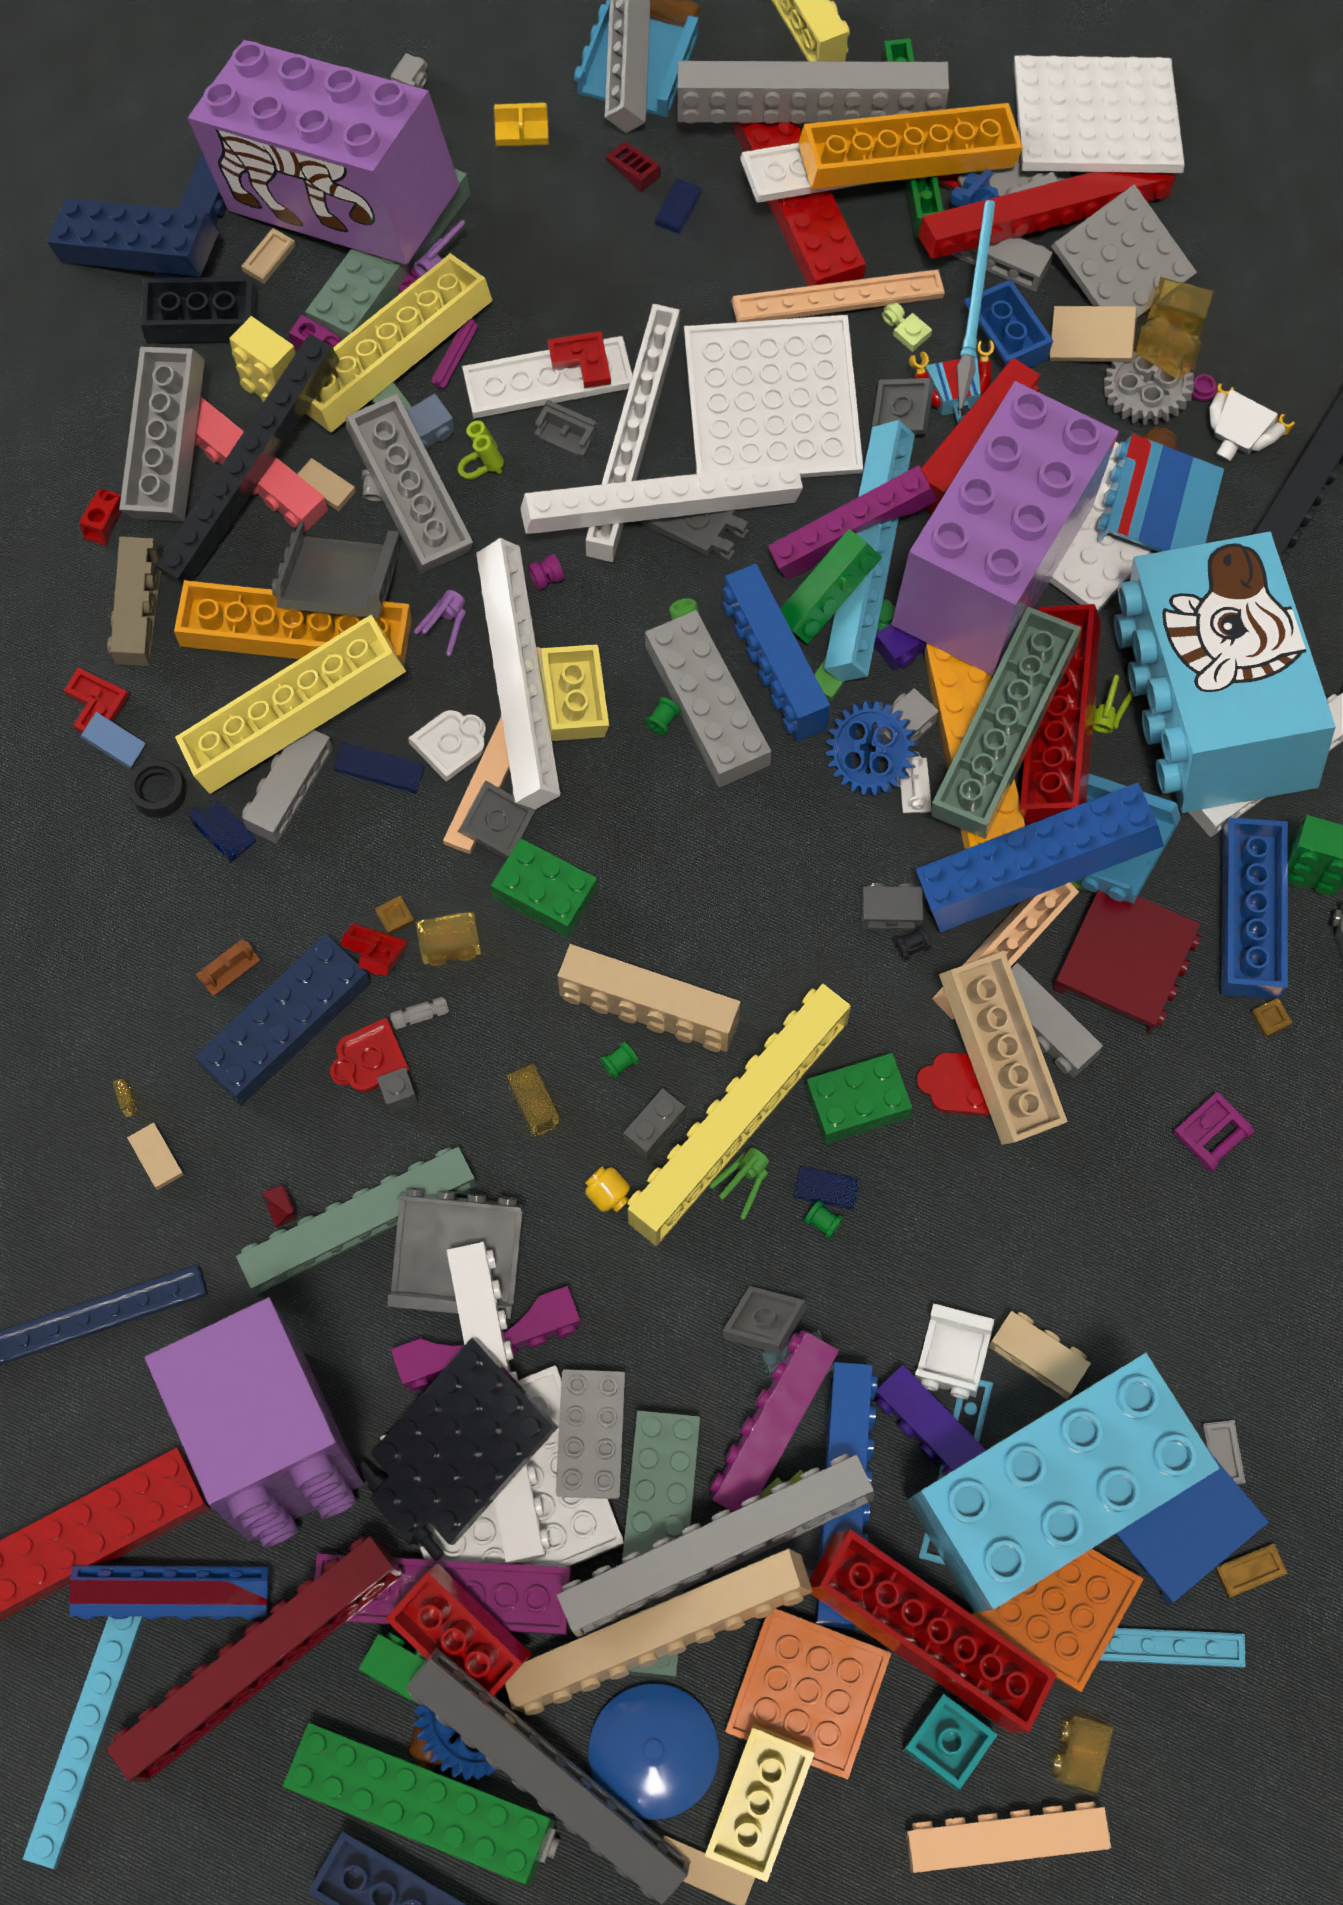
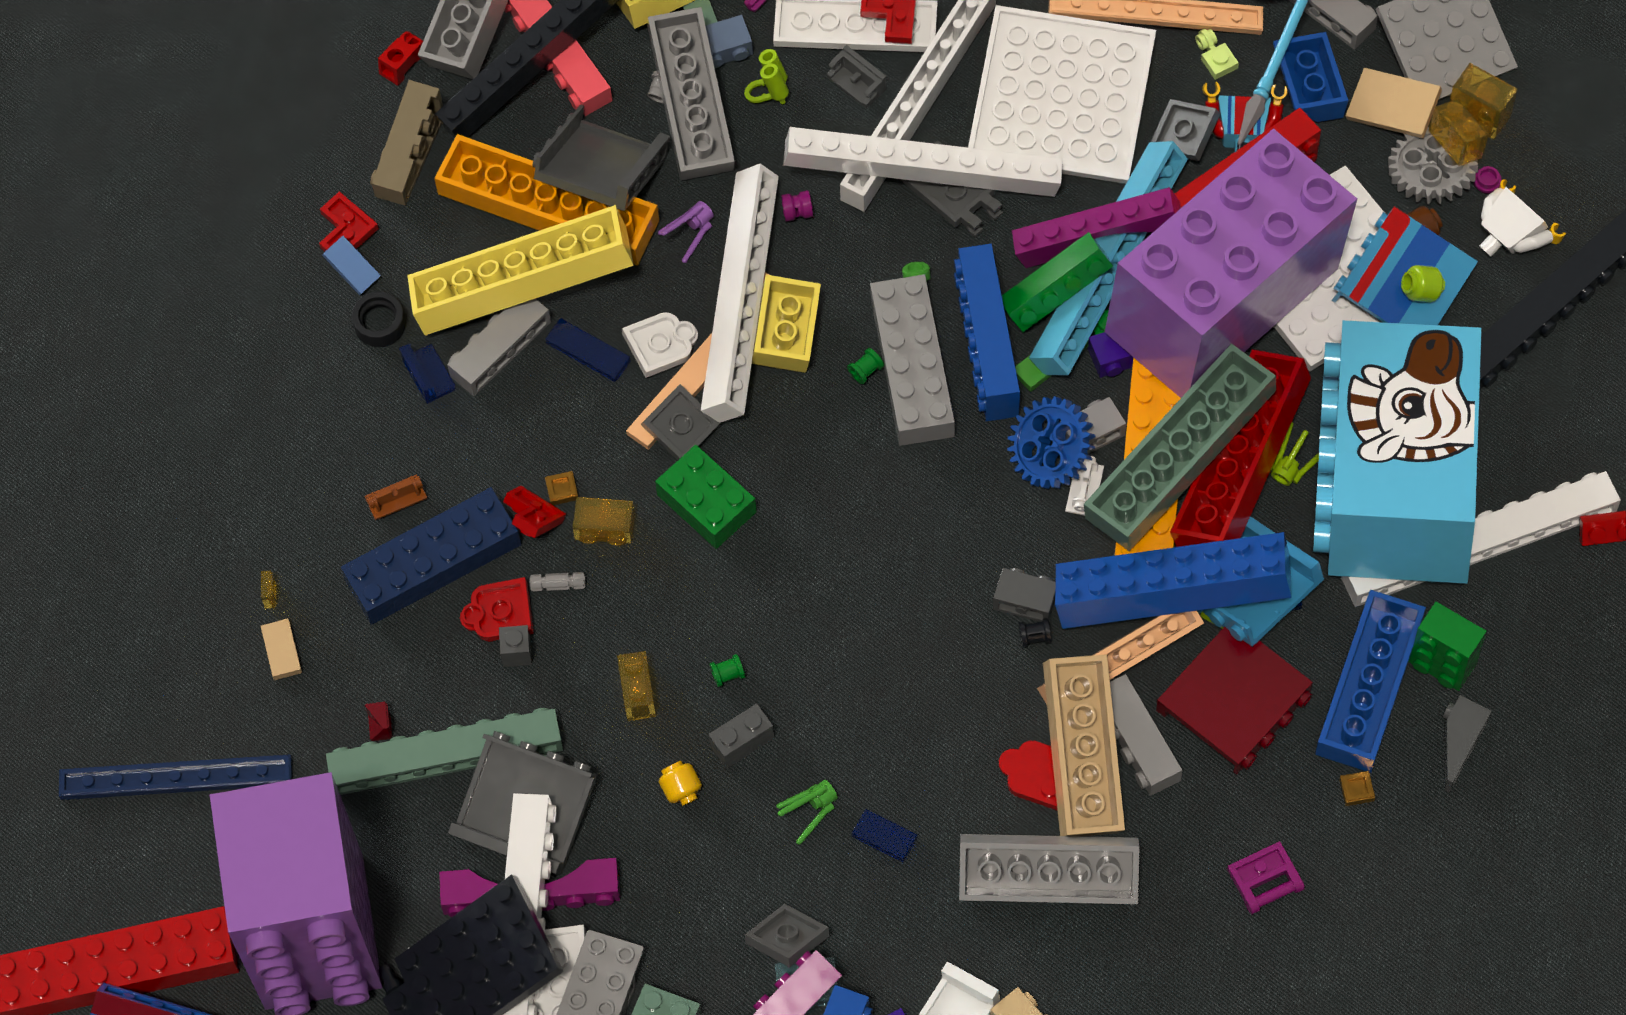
camera: 20 degrees right, 5 degrees down
(330, 485) = (617, 75): tan tile -> none
(648, 998) = (770, 620): tan brick -> none
(738, 1114) = (820, 745): light yellow brick -> none
(823, 1219) = (871, 862): green bush -> none
(858, 1098) = (938, 761): green brick -> none
(1005, 1181) = (1049, 869): none -> light grey brick
(1184, 502) = (1423, 283): none -> lime head

